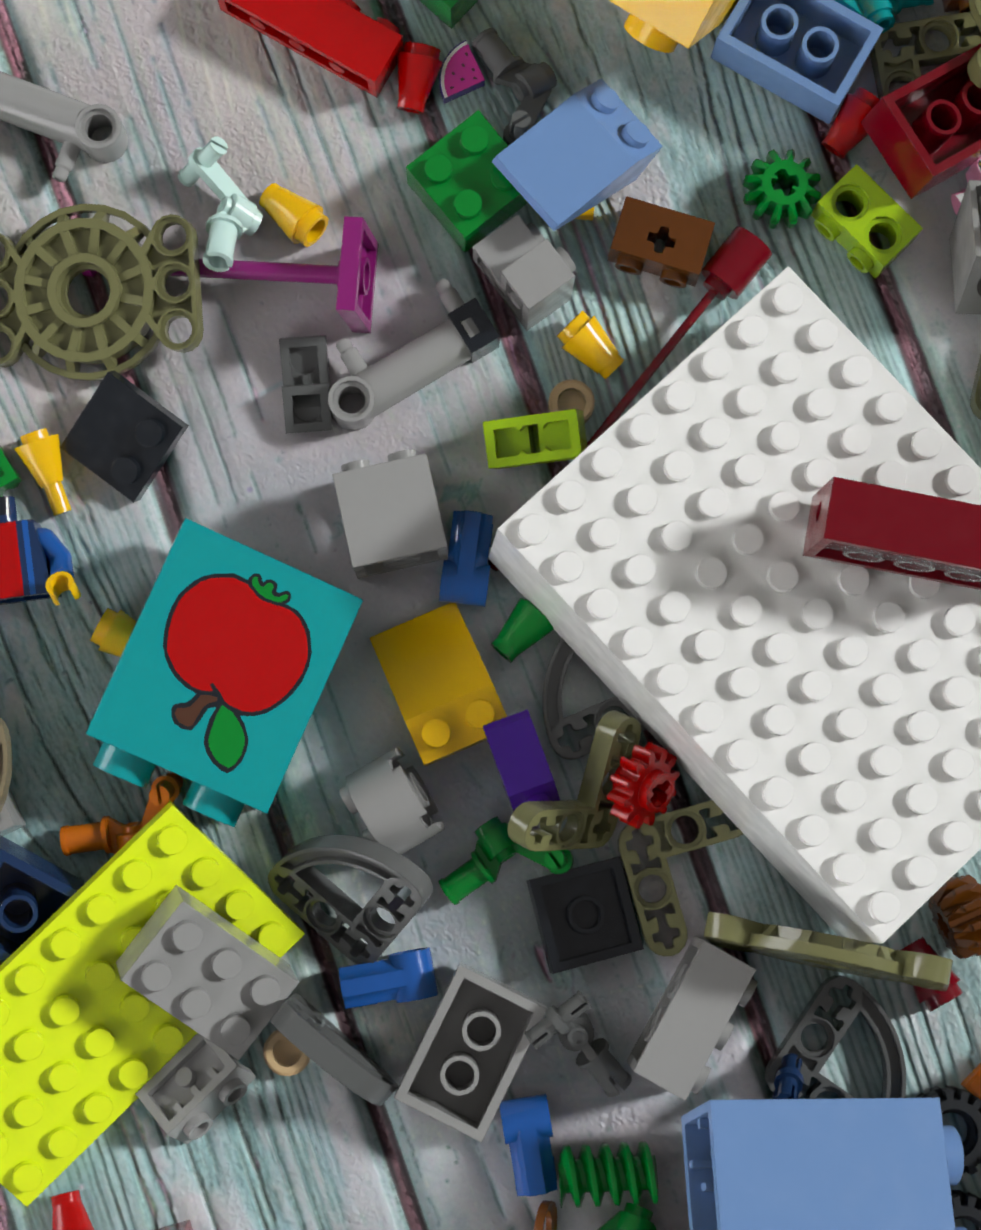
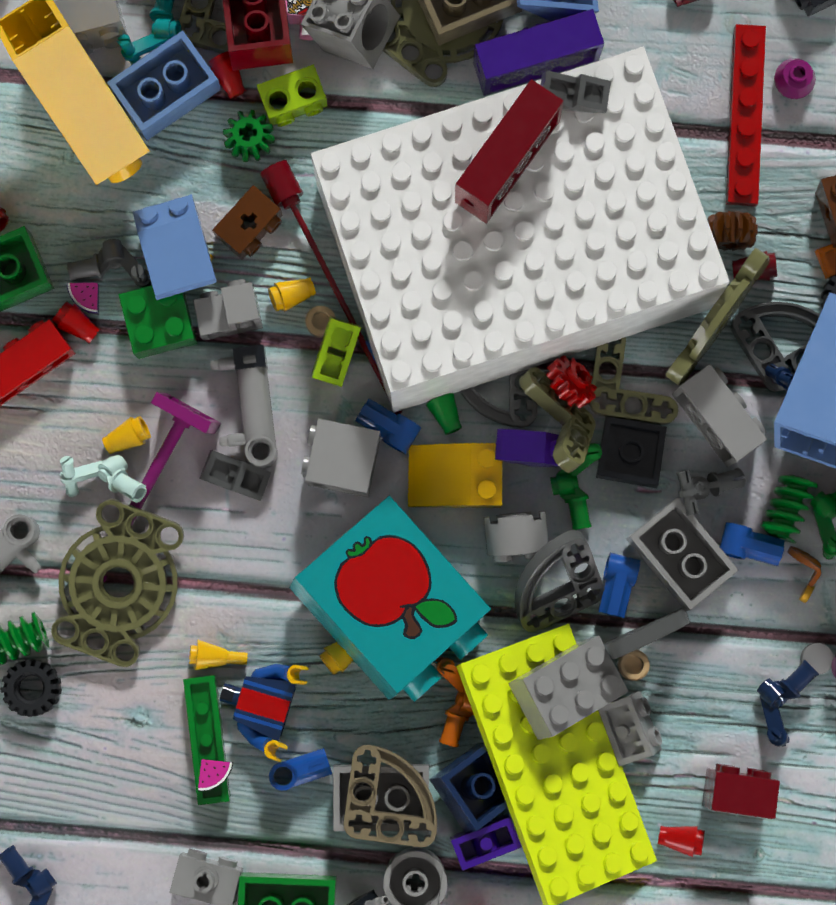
camera: 65 degrees left, 0 degrees up
(124, 436) = (217, 599): black plate -> none

